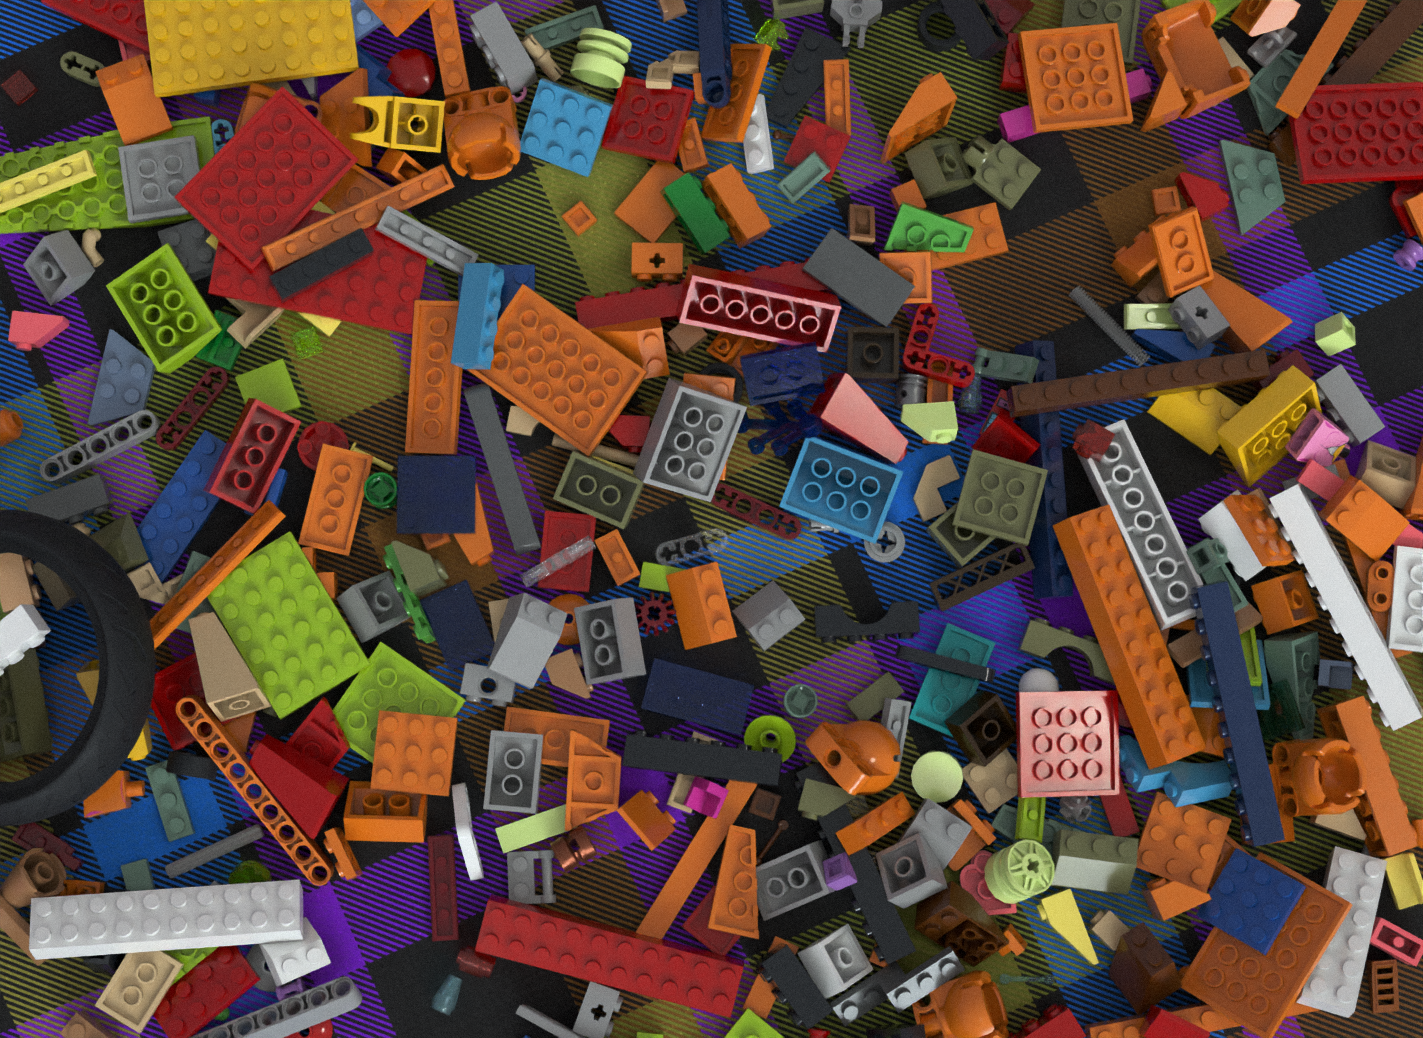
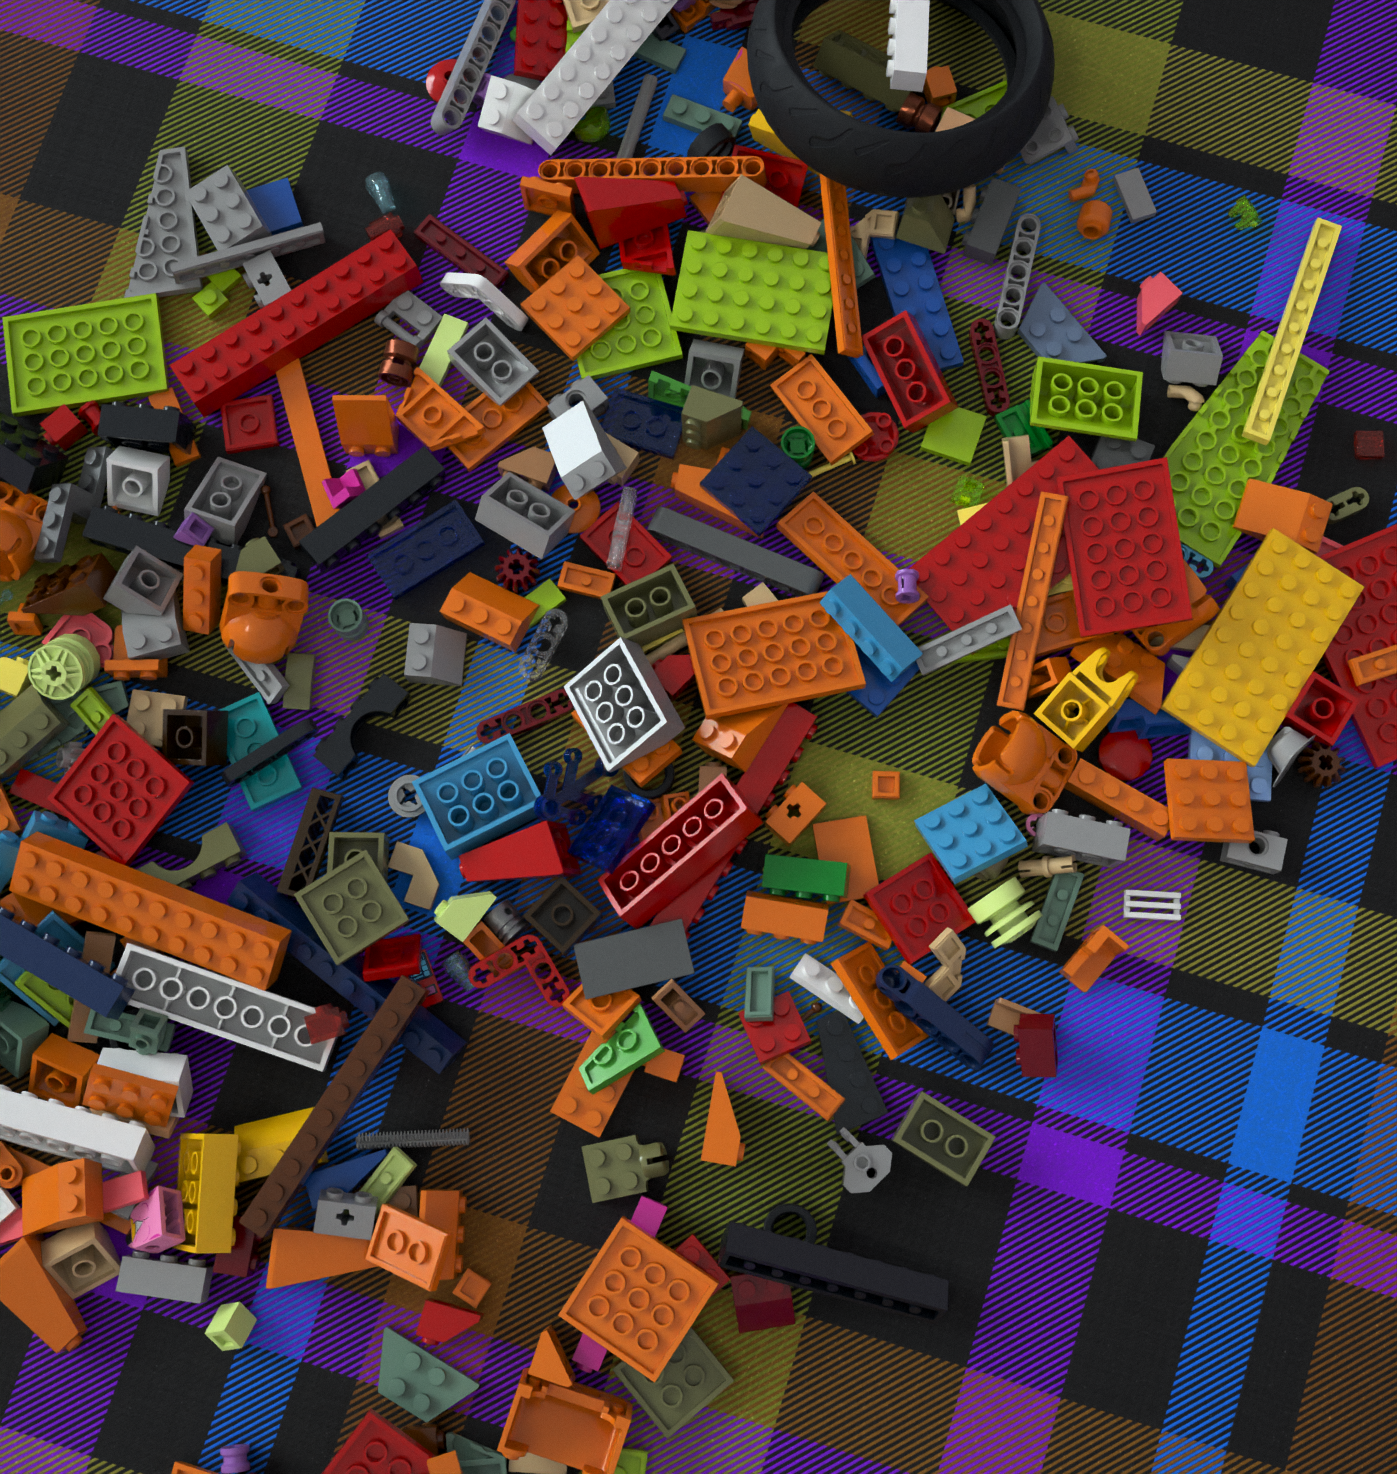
camera: 140 degrees right, 5 degrees down
(155, 175) = (1203, 483): light grey plate -> none
(321, 265) = (1015, 536): black brick -> none
(422, 317) = (907, 586): none -> medium lavender bush
(735, 894) = (255, 450): orange wing -> none
(763, 725) = (344, 577): lime dish -> none
(770, 32) = (908, 1077): clear neon green tile -> none
(937, 776) = (196, 674): yellowish green tile -> none
(938, 167) = (669, 1115): olive slope -> none
(1005, 366) = (455, 1015): sand green plate -> none
(1038, 681) = (189, 816): white hair -> none

